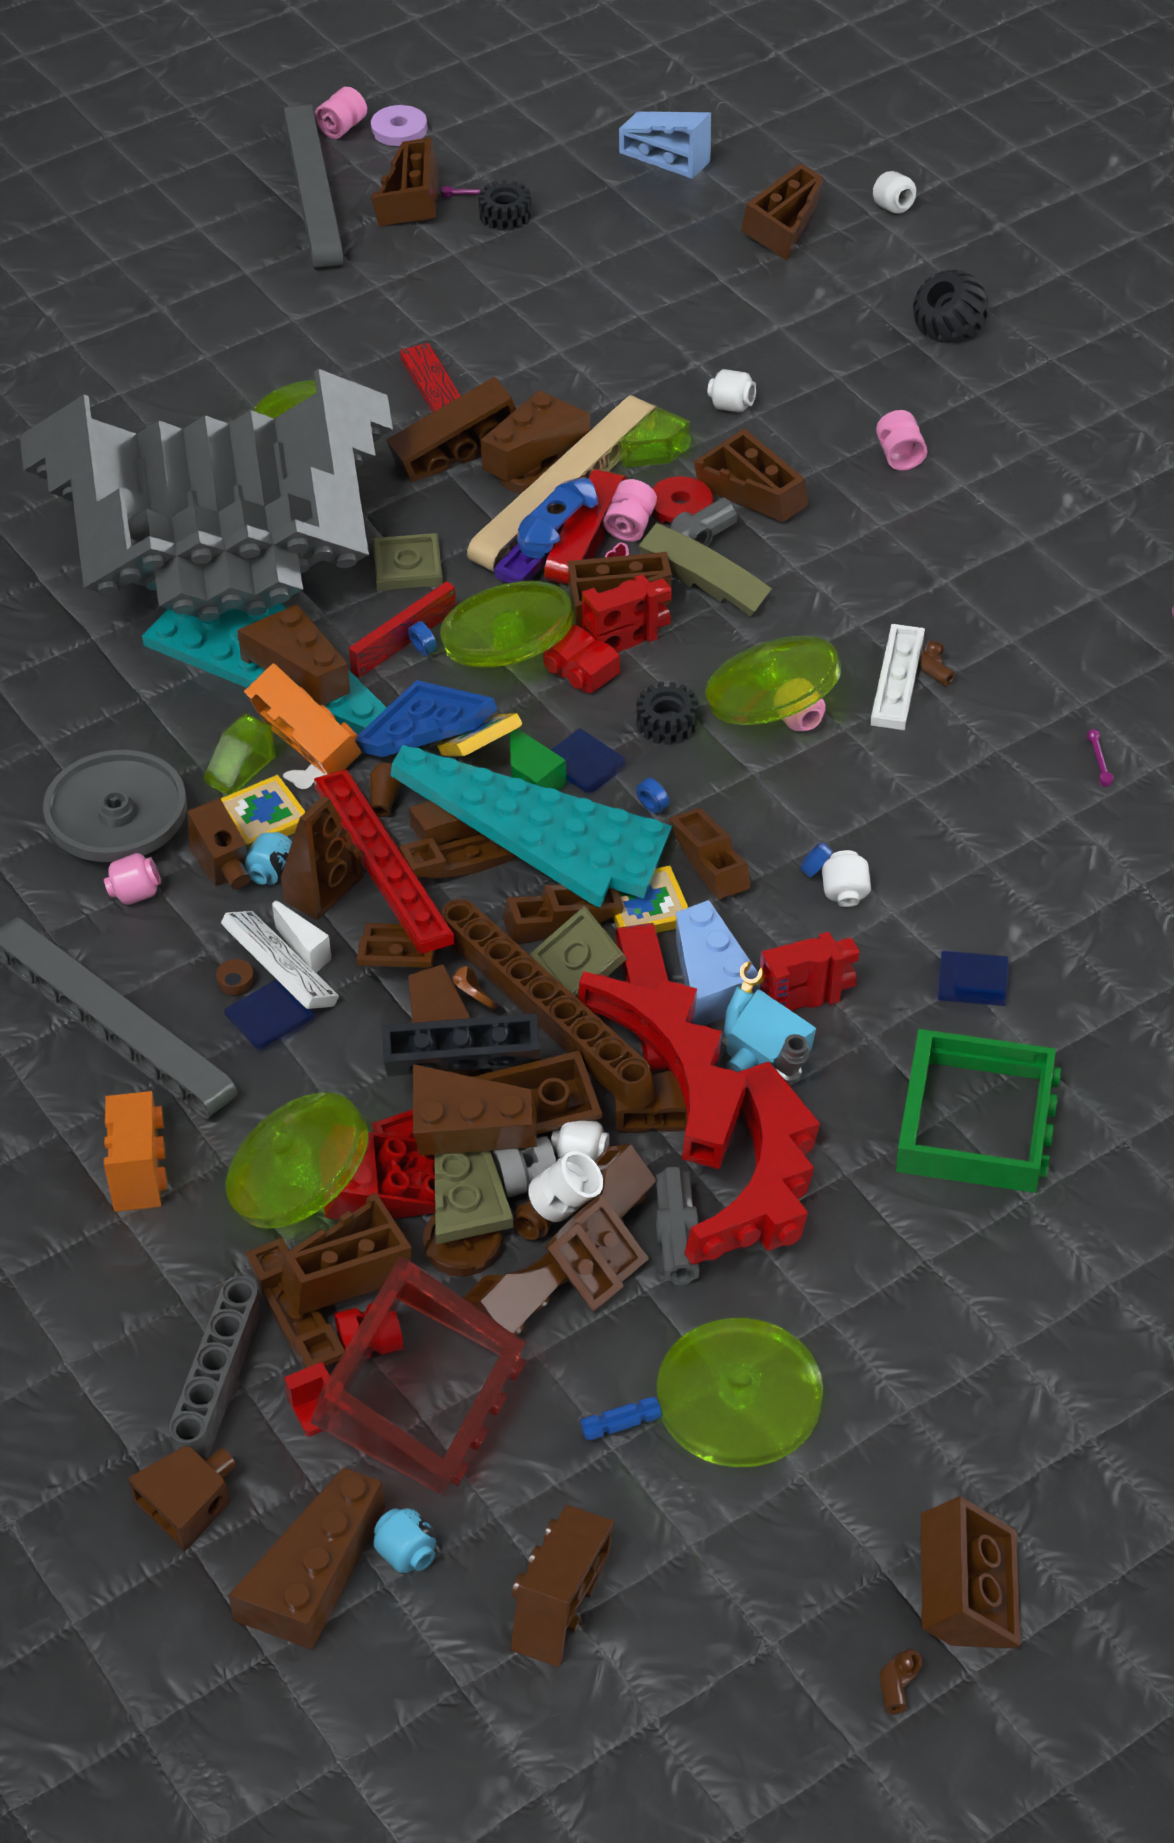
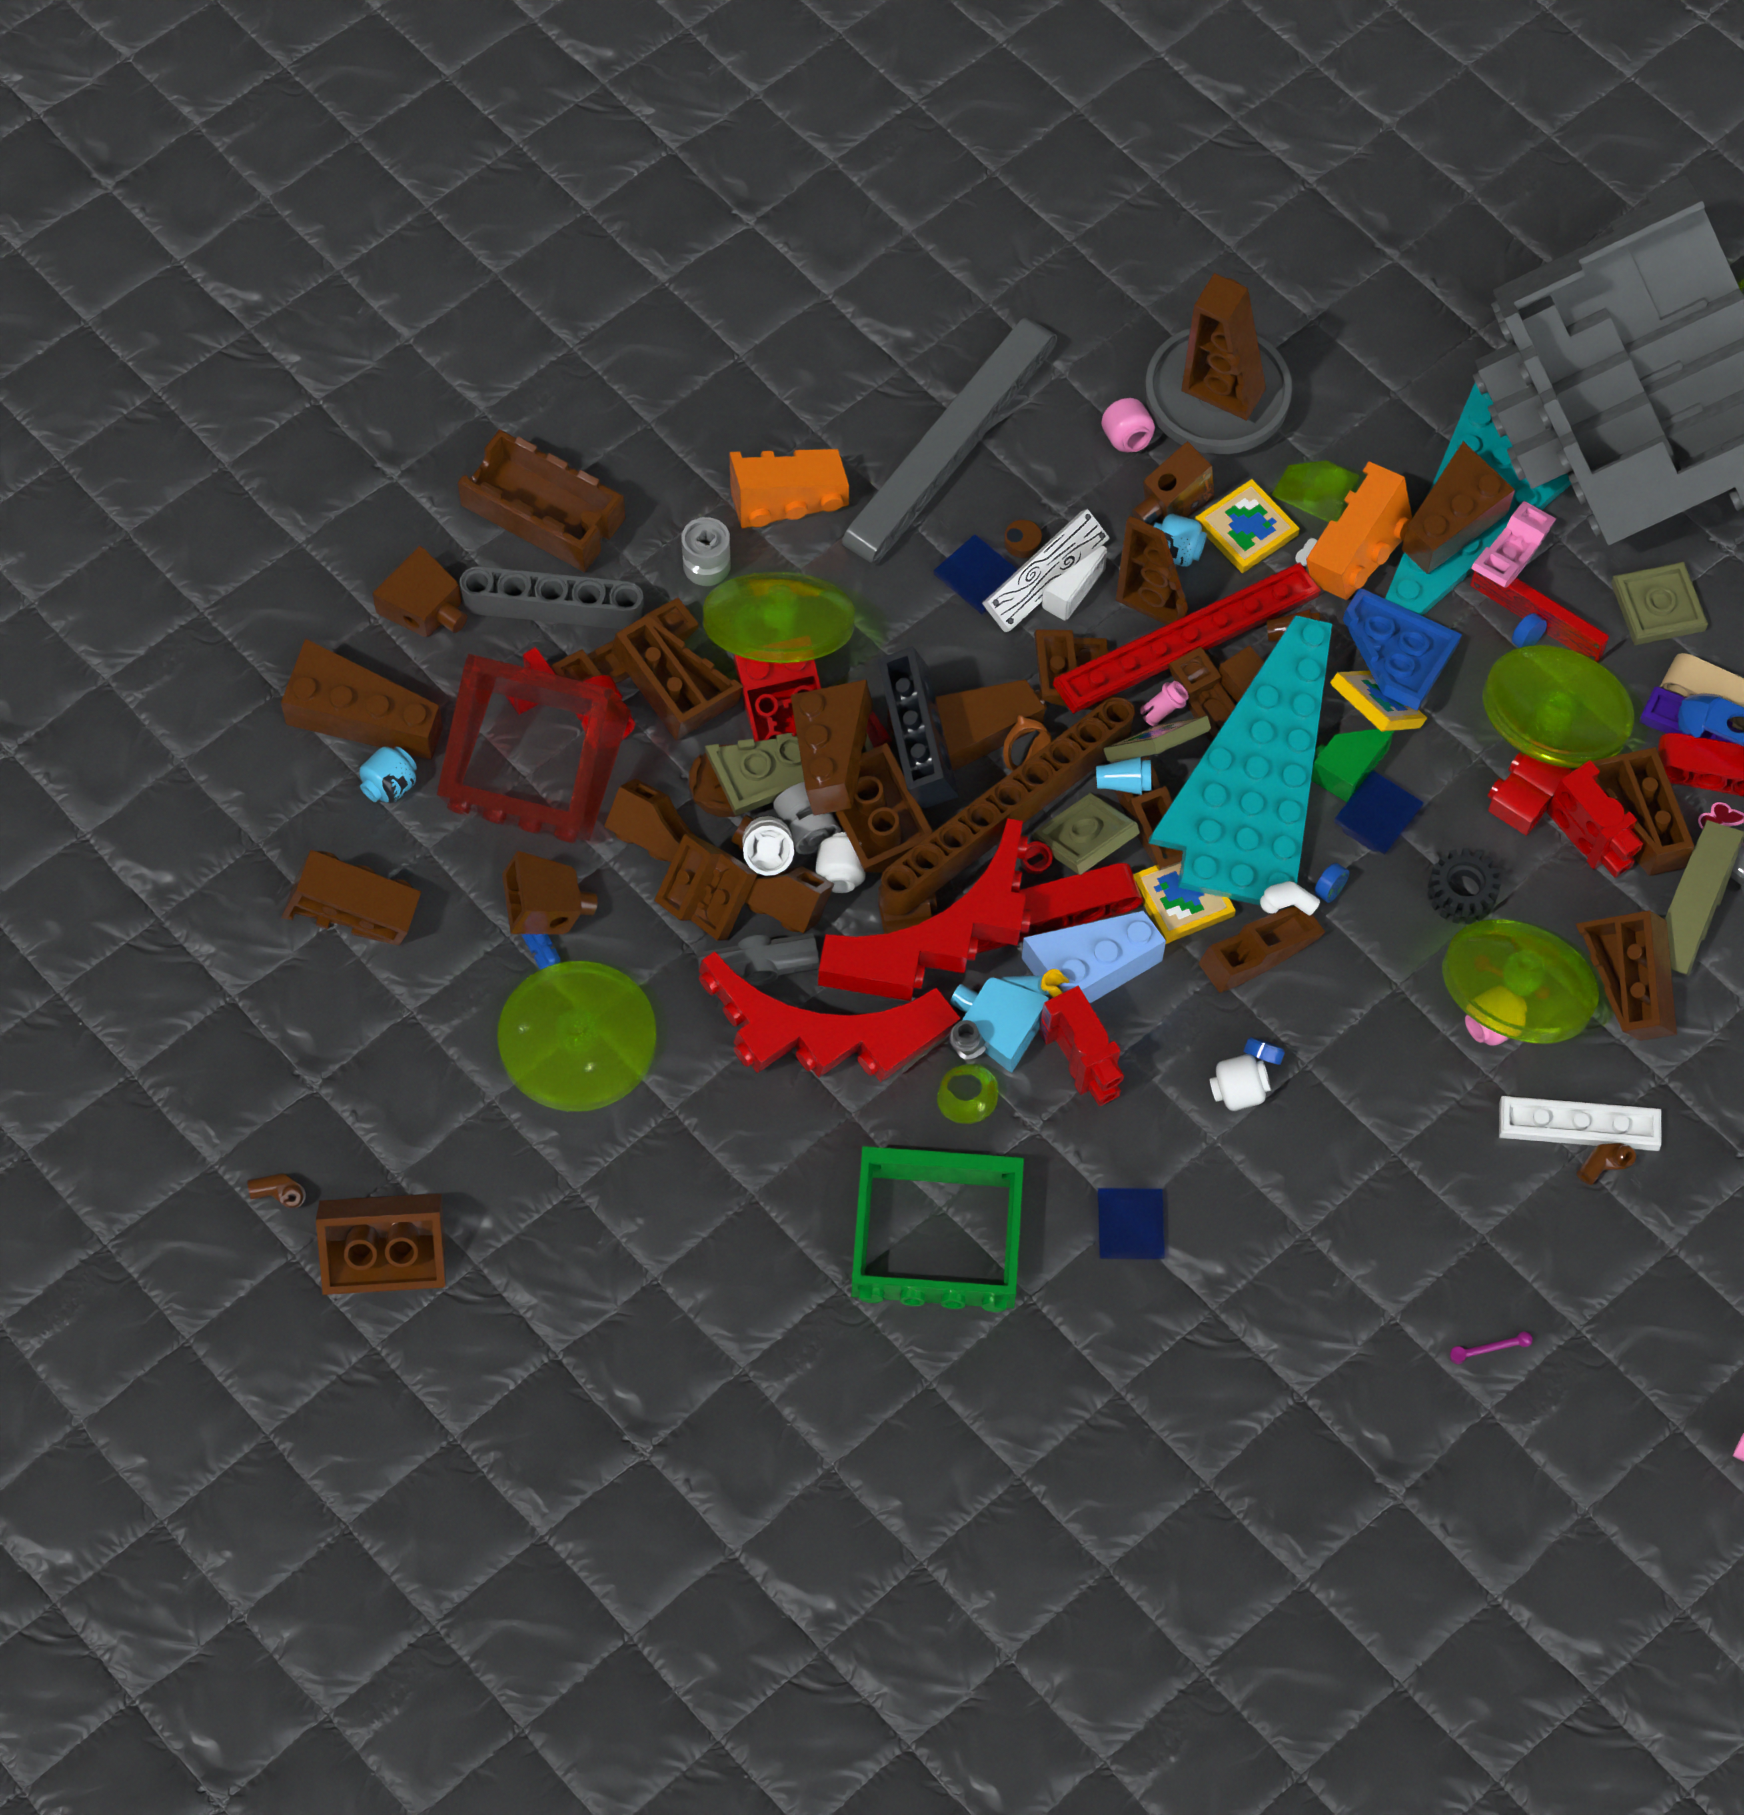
camera: 80 degrees right, 15 degrees up
(93, 1364) = (543, 500): none -> reddish brown piece
(105, 758) = (1223, 349): none -> reddish brown wedge
(195, 1223) = (706, 551): none -> light grey wheel
(351, 631) = (1514, 545): none -> bright pink slope
(447, 882) = (1171, 697): none -> bright pink pin
(497, 881) = (1157, 739): none -> olive tile
(532, 906) = (1125, 776): none -> medium azure cone
(585, 1396) = (543, 895): none -> reddish brown torso
(669, 819) = (1288, 894): none -> white arm
(771, 610) = (1635, 970): none -> reddish brown wedge
(841, 1095) = (971, 1110): none -> clear neon green piece

